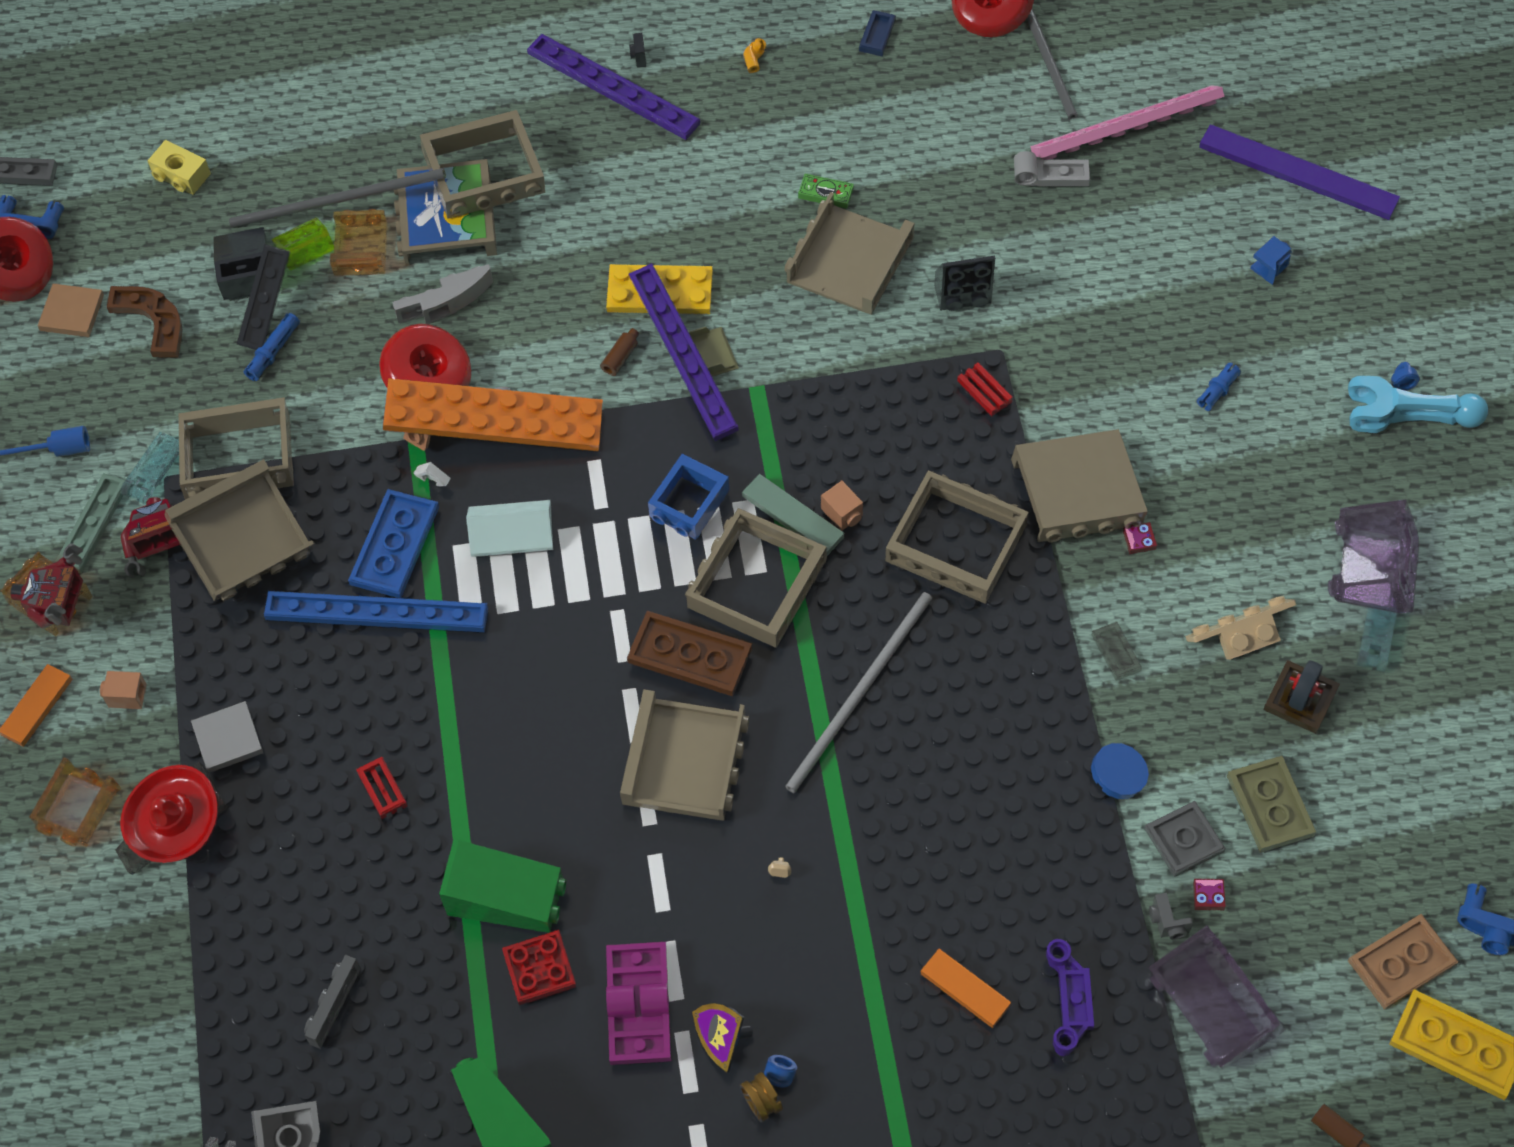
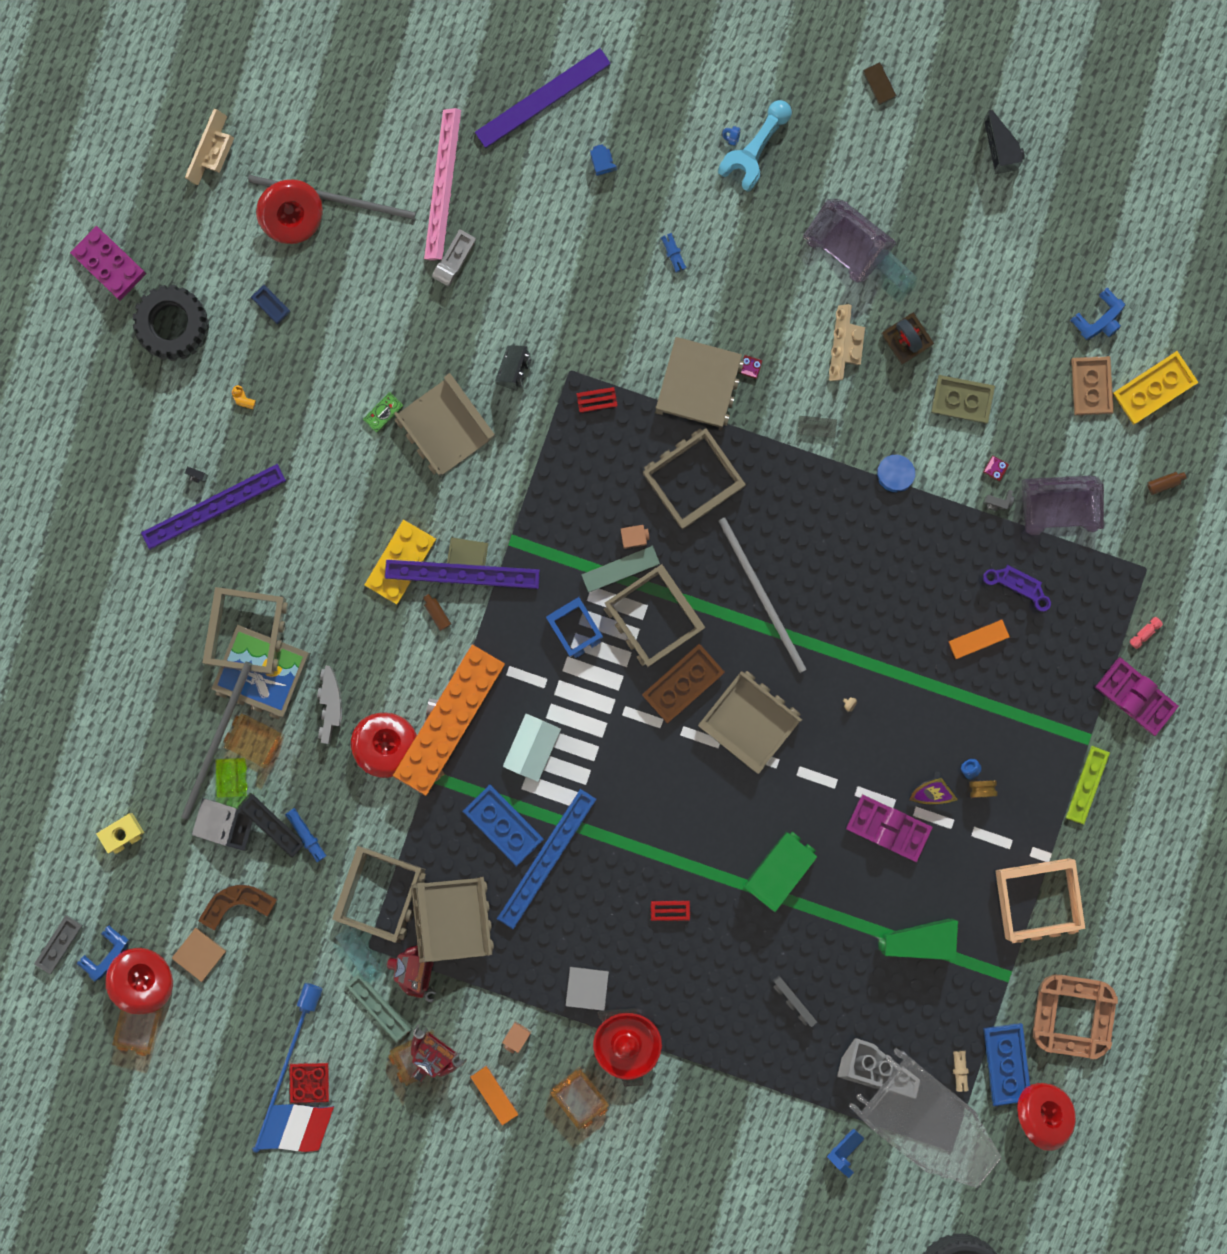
camera: 60 degrees left, 25 degrees up
(432, 472) = (467, 779): white tile -> none
(539, 967) = (835, 873): red tile -> none
(1184, 838) = (955, 461): dark grey tile -> none

